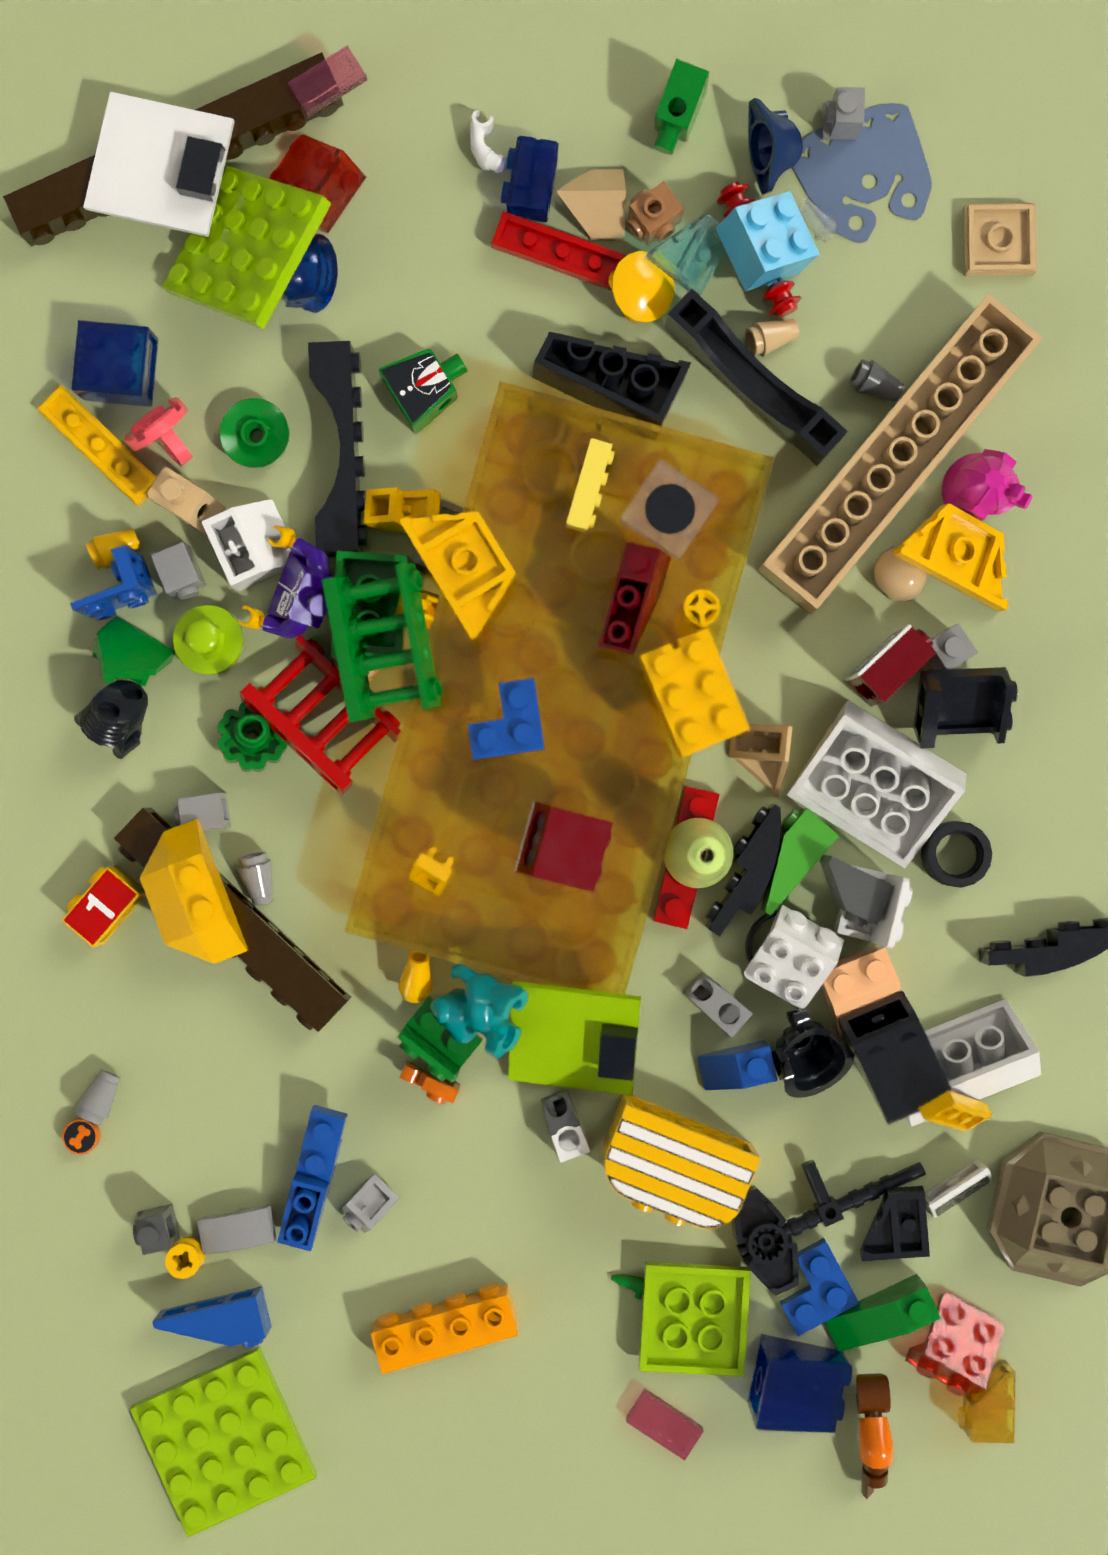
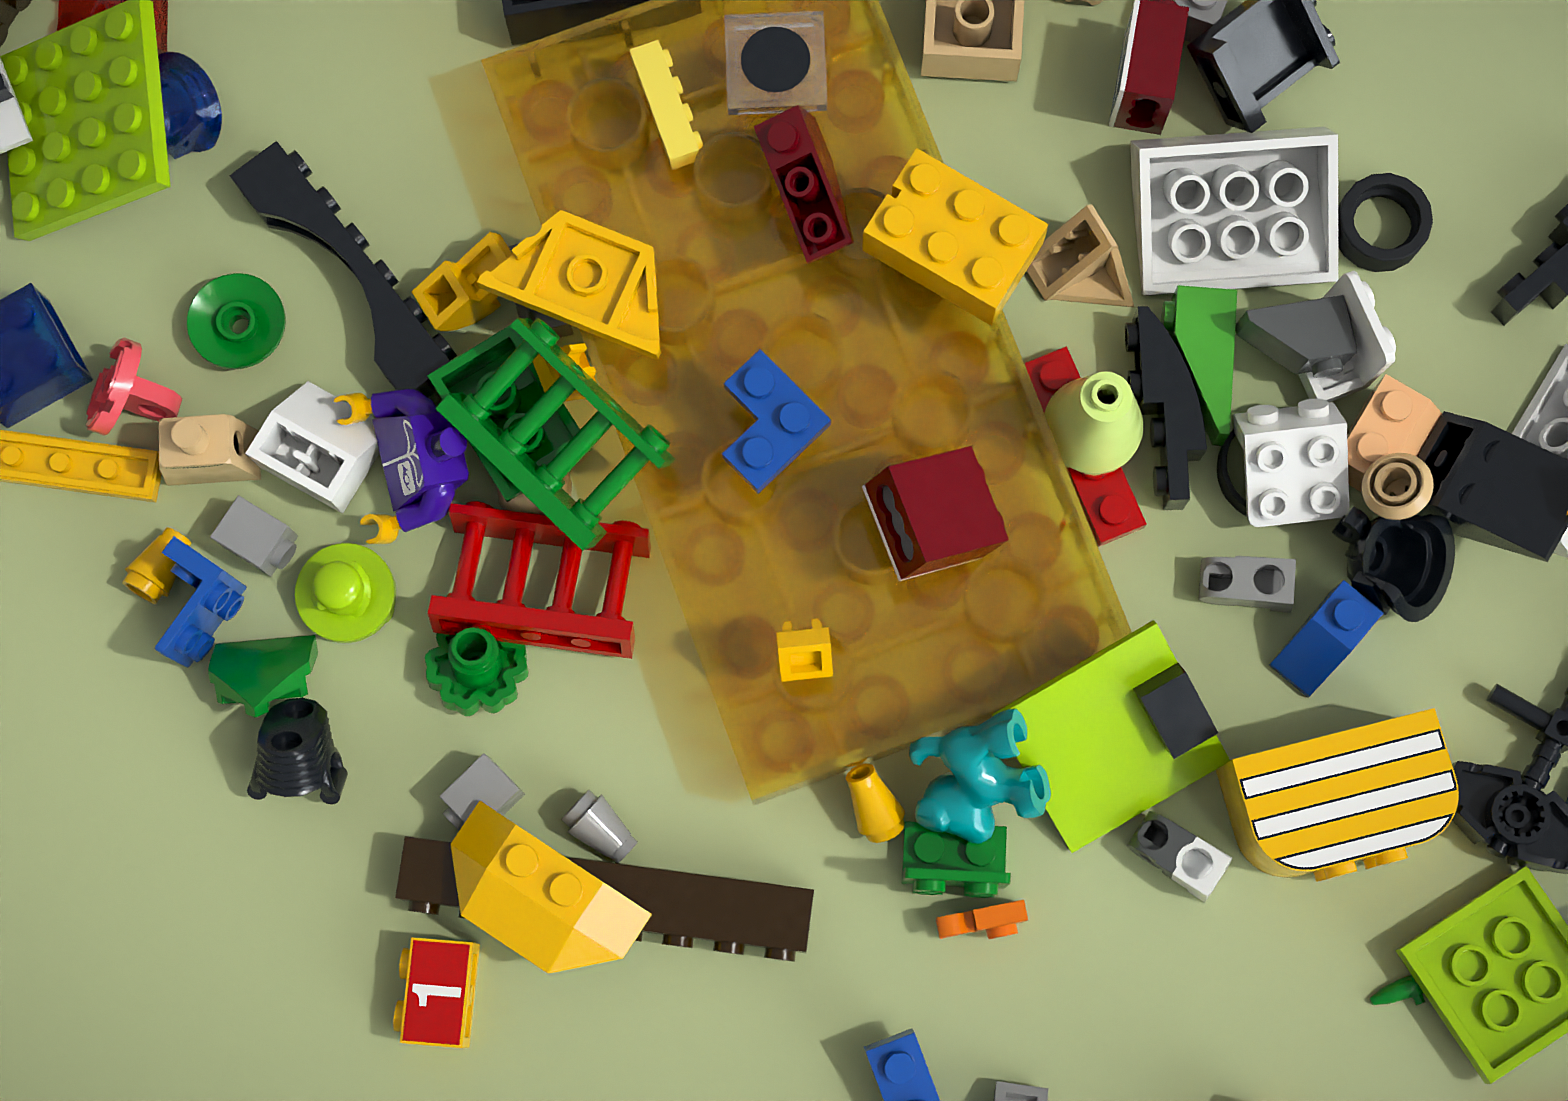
camera: 30 degrees left, 10 degrees down
(422, 385) = (393, 137): torso -> none
(700, 602) = (891, 130): yellow wheel -> none
(841, 1010) = (1393, 476): none -> tan cone

